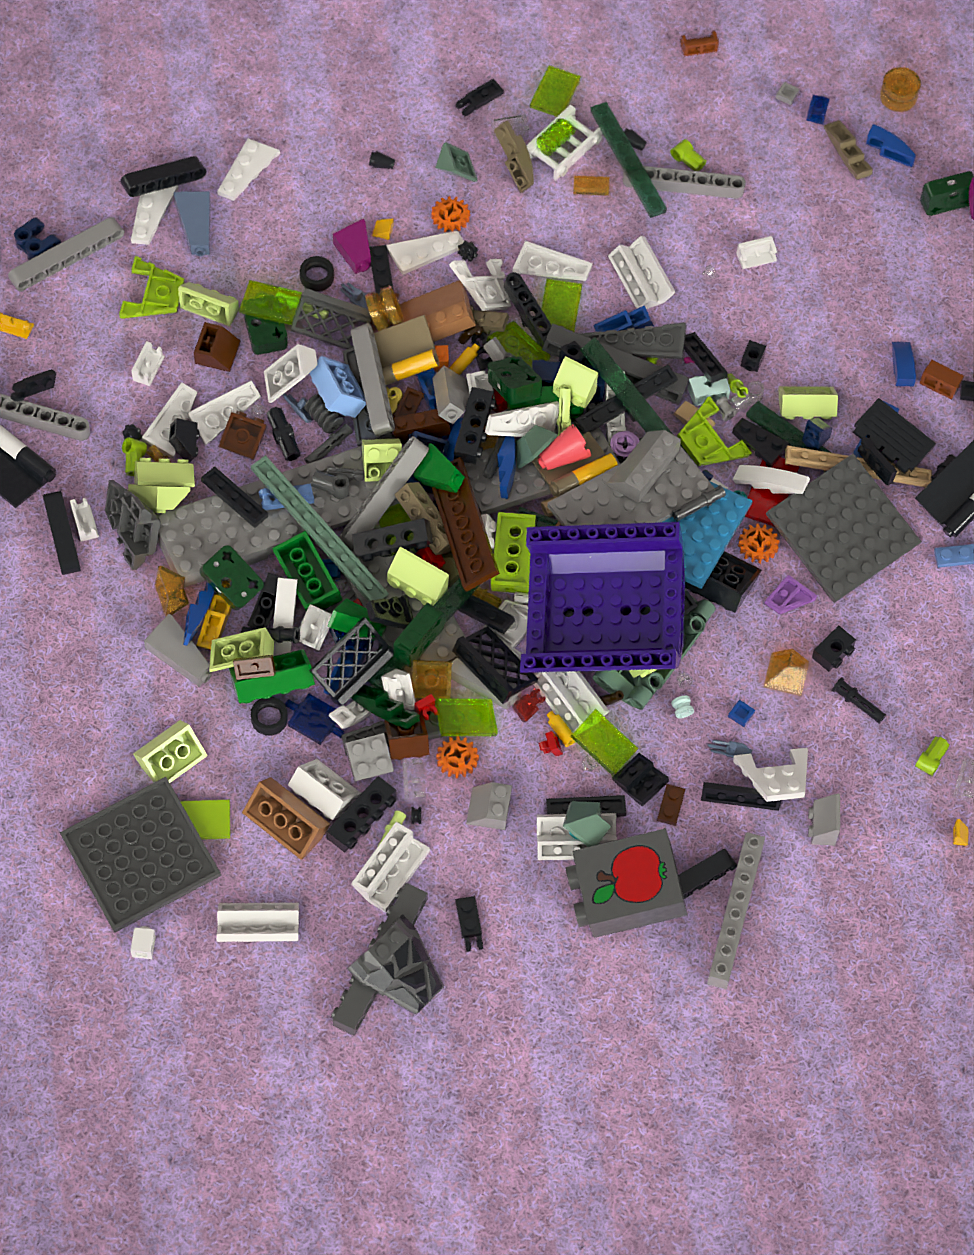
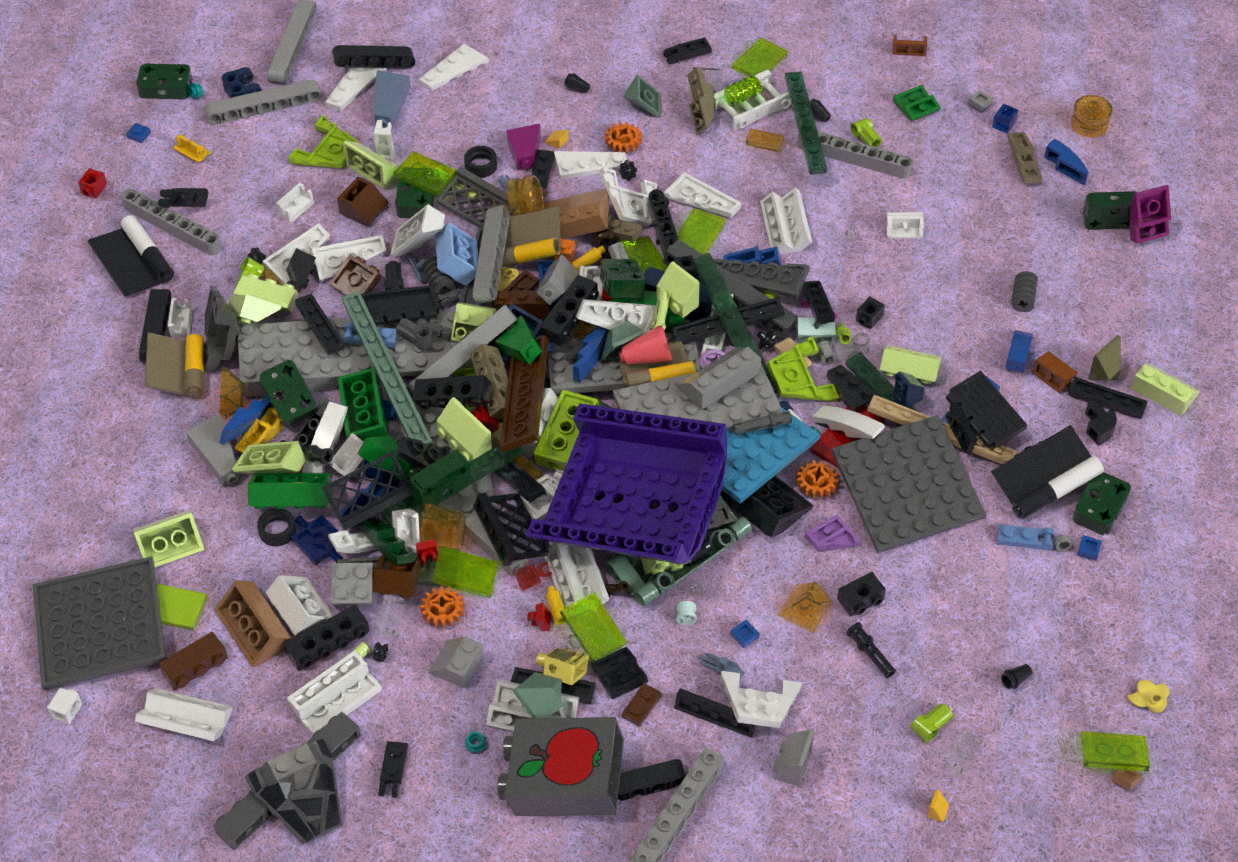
camera: 20 degrees right, 10 degrees down
(67, 174) = (292, 41): none -> light grey beam
(102, 571) = (175, 364): none -> dark tan door
(213, 273) = (383, 140): none -> white hinge
(246, 869) = (193, 661): none -> reddish brown brick
(254, 667) = (270, 472): plate -> none
(305, 453) = (402, 303): none -> black hinge
(535, 874) = (475, 736): none -> teal plate
(590, 786) = (564, 664): none -> light yellow torso
(665, 408) = (766, 340): none -> black plant
(725, 109) = (916, 103): none -> green slope
(891, 300) = (1024, 291): none -> dark grey piece

